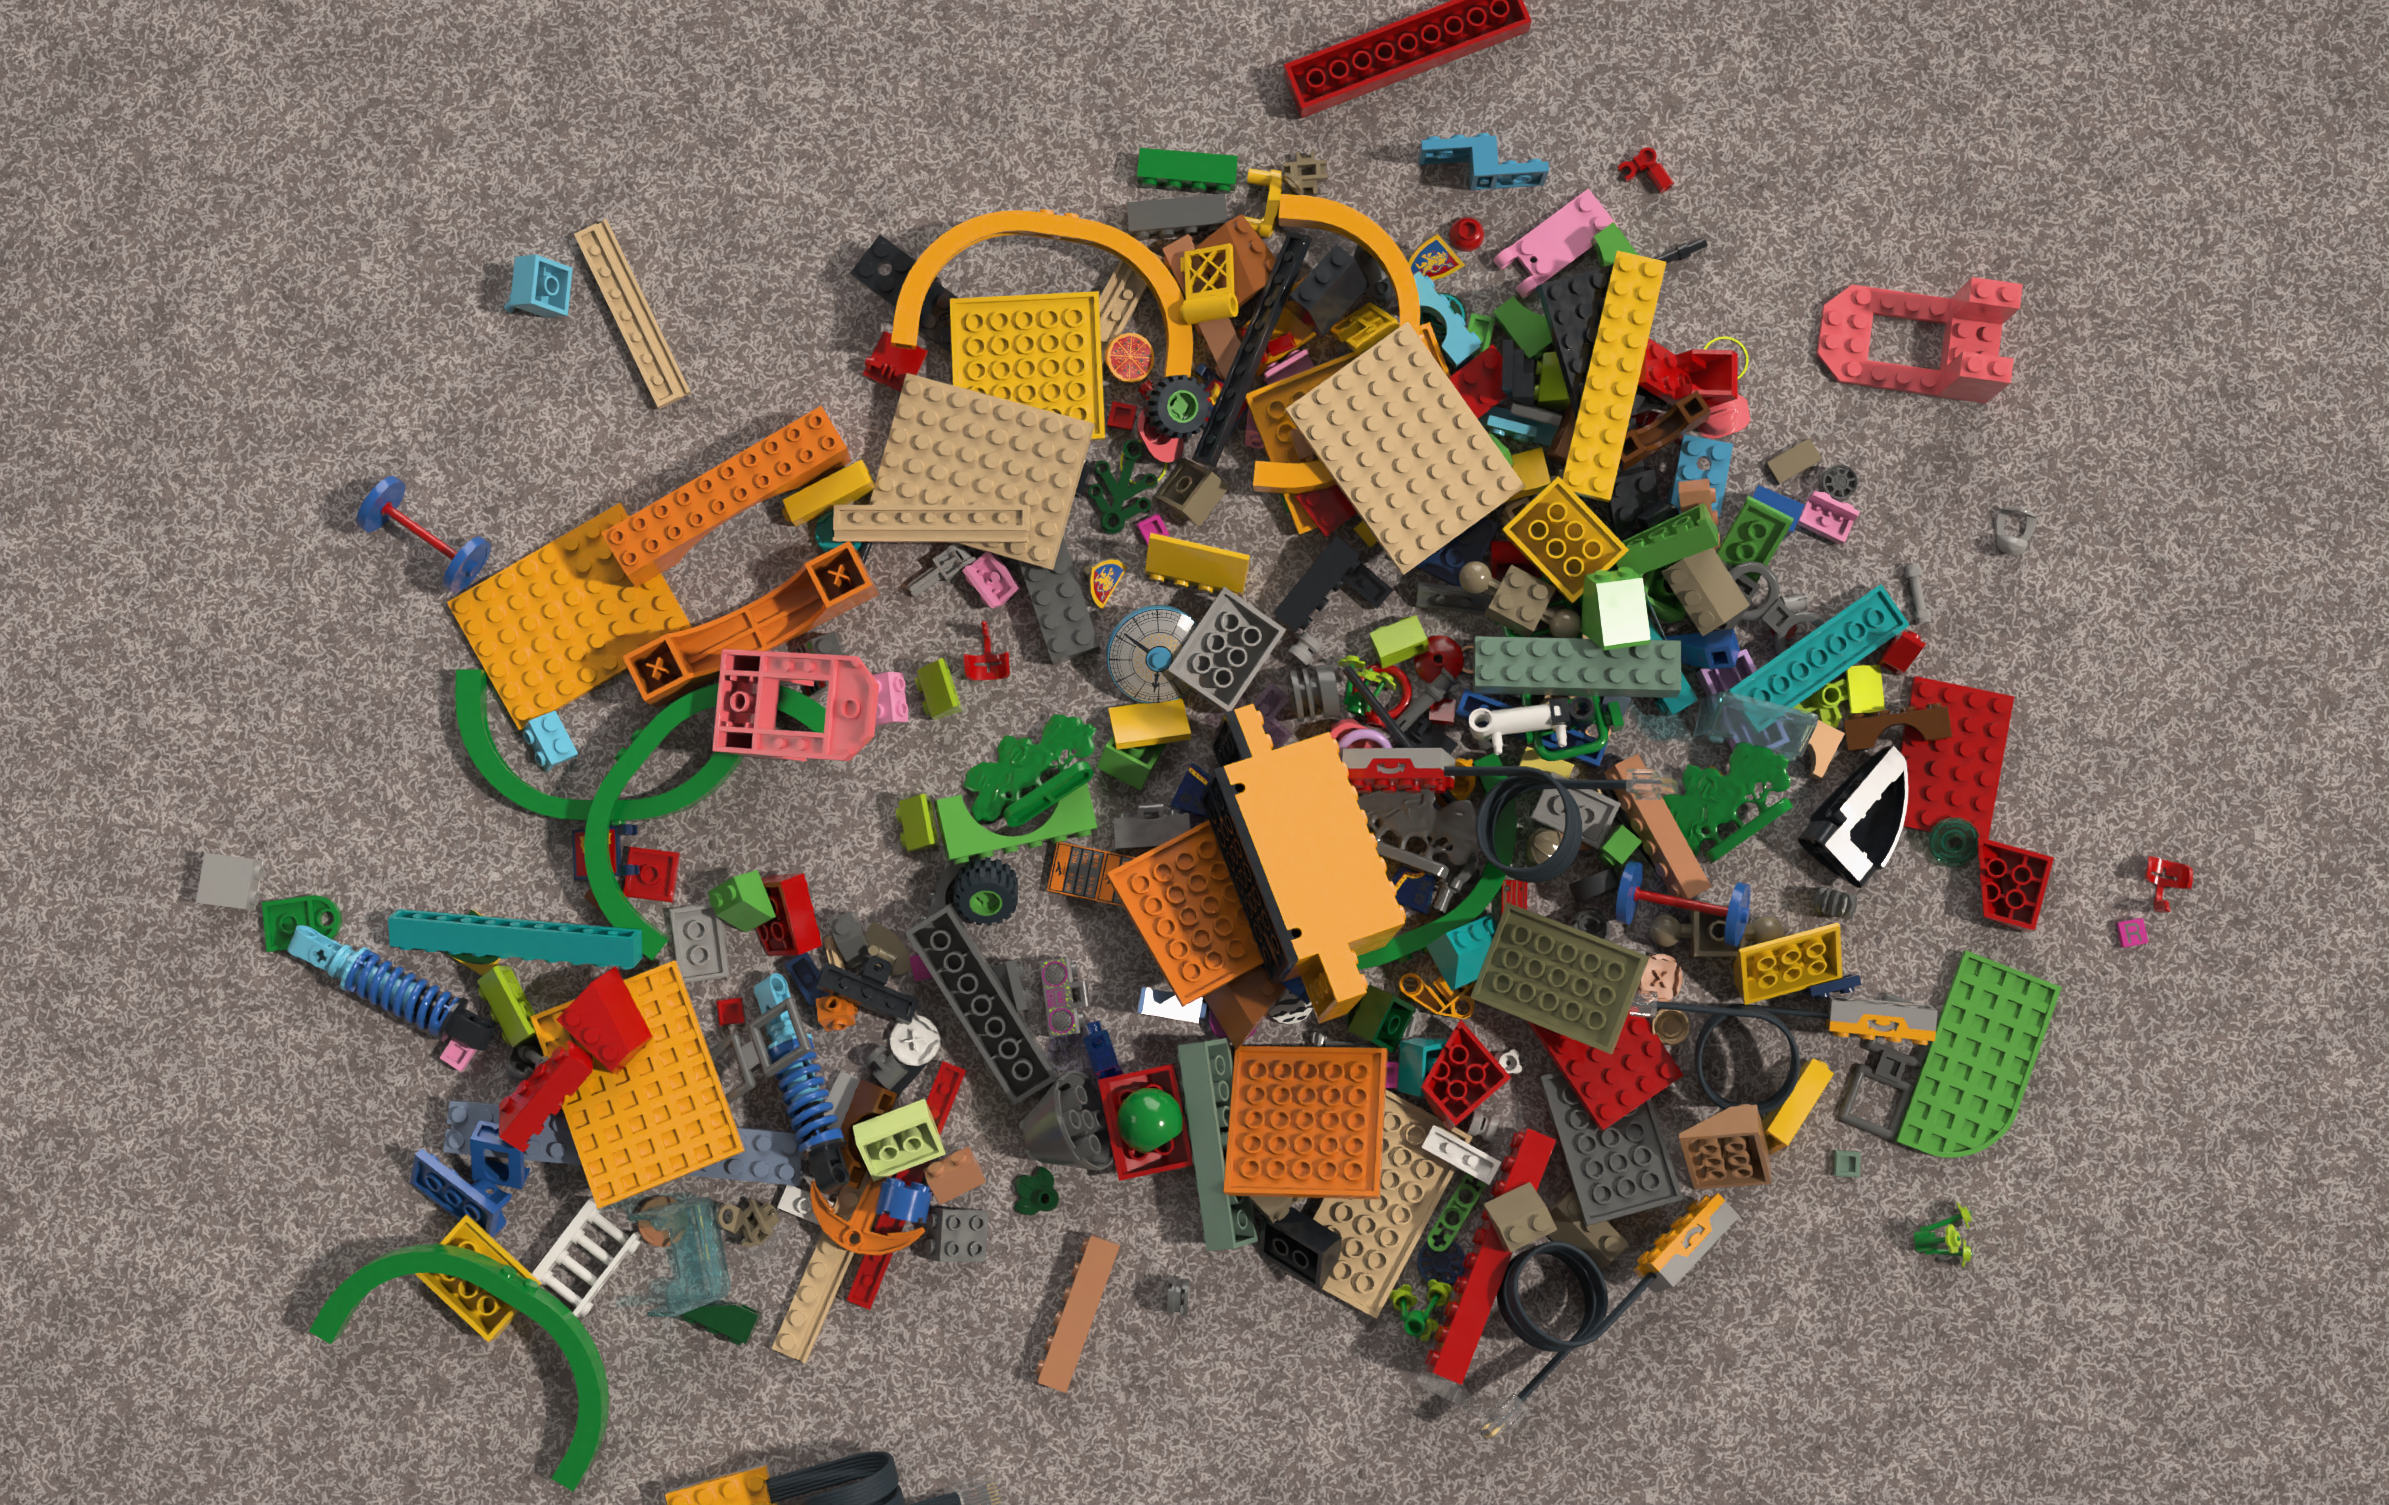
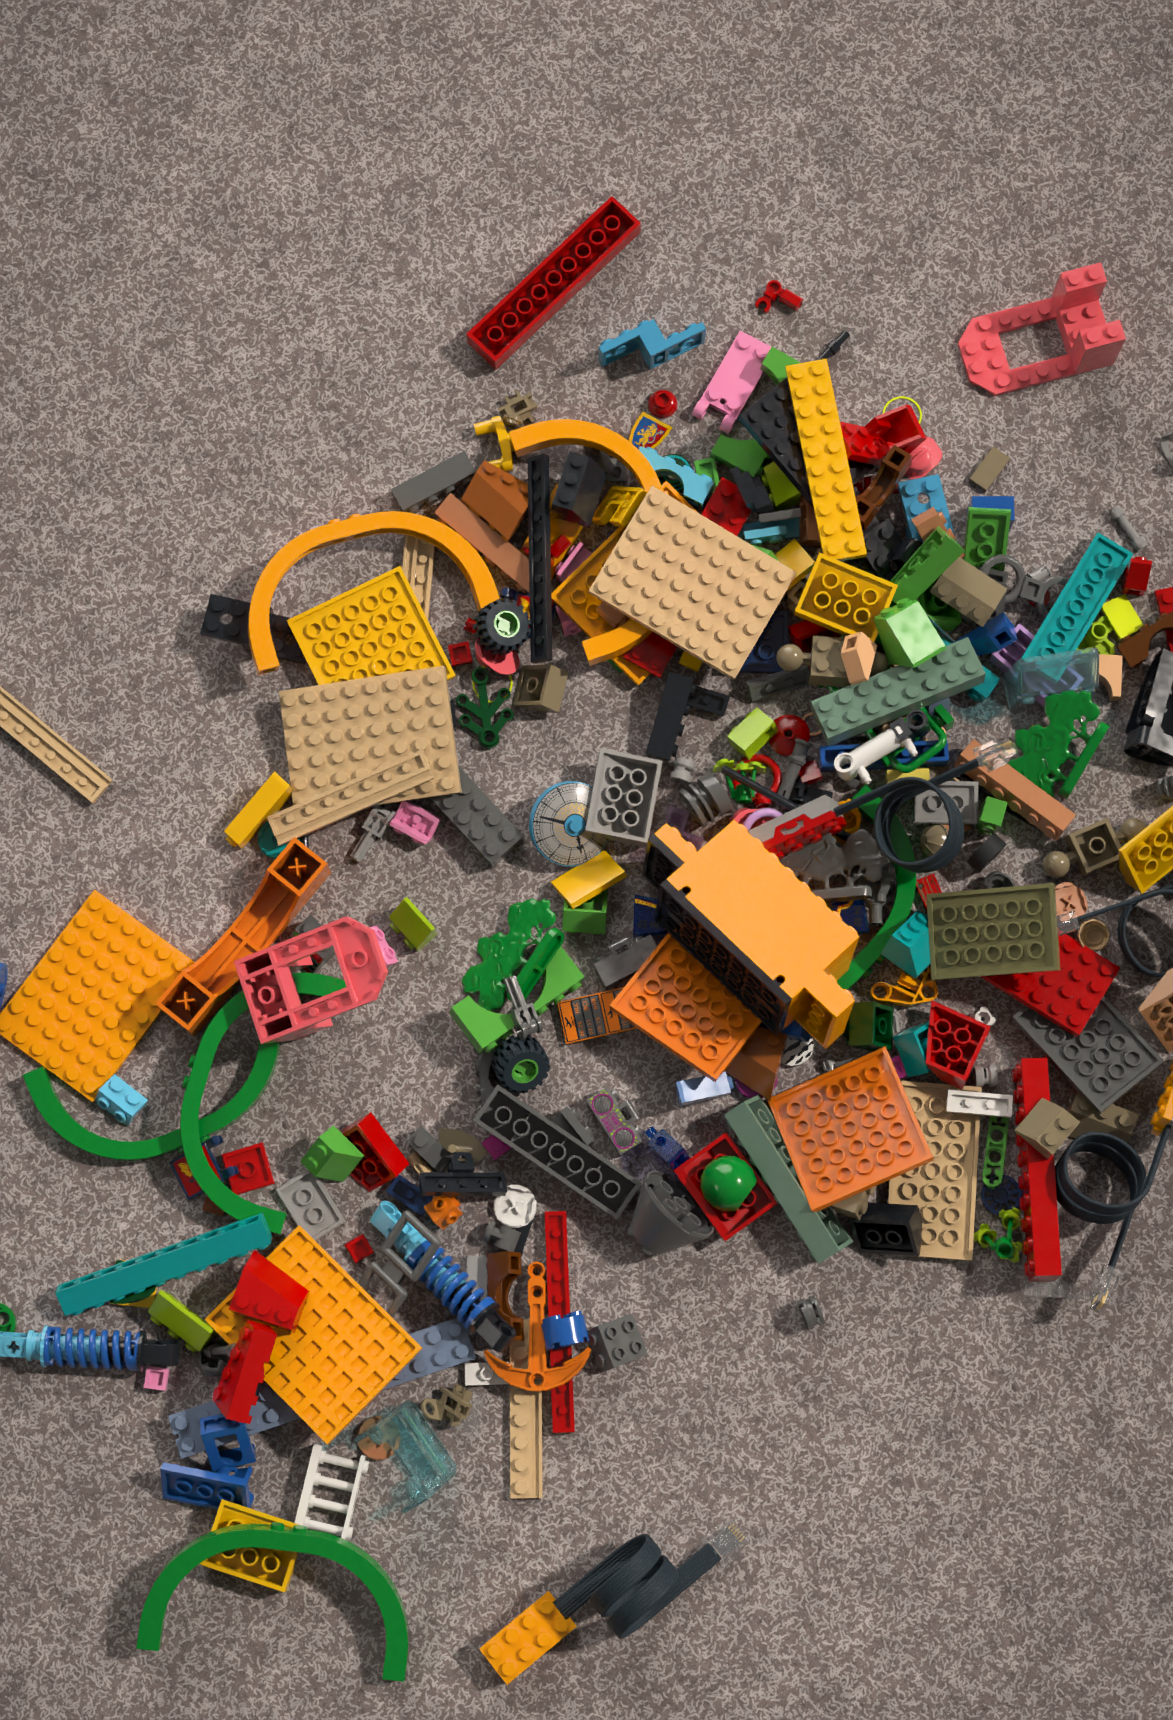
camera: 30 degrees left, 5 degrees down
(672, 525) = (147, 887): orange arch -> none
(730, 1319) = (467, 1489): dark green slope -> none
(891, 364) = (262, 690): red hinge -> none
(898, 1140) = (539, 1286): yellowish green slope -> none
(918, 823) = (442, 1035): lime slope -> none
(954, 1175) = (594, 1296): nougat brick -> none
(980, 673) = (450, 892): red helmet -> none
(1010, 841) = (522, 1014): none -> dark grey connector
(1032, 1192) = (660, 1281): dark green plate -> none
(1078, 1313) = (739, 1360): nougat brick -> none
(1103, 579) = (502, 783): shield -> none
(1129, 357) = (446, 606): tile -> none
(1152, 525) = (523, 731): dark pink tile -> none
(1187, 170) = (426, 445): green brick -> none
(1196, 565) = (570, 741): yellow slope -> none
(1208, 304) = (490, 538): yellow piece -> none
(1548, 610) = (858, 657): none -> light nougat slope
(1631, 892) = (1016, 845): blue piece -> none
(1828, 517) = (1035, 499): bright pink bracket -> none
(1839, 482) = (1030, 471): dark grey wheel -> none

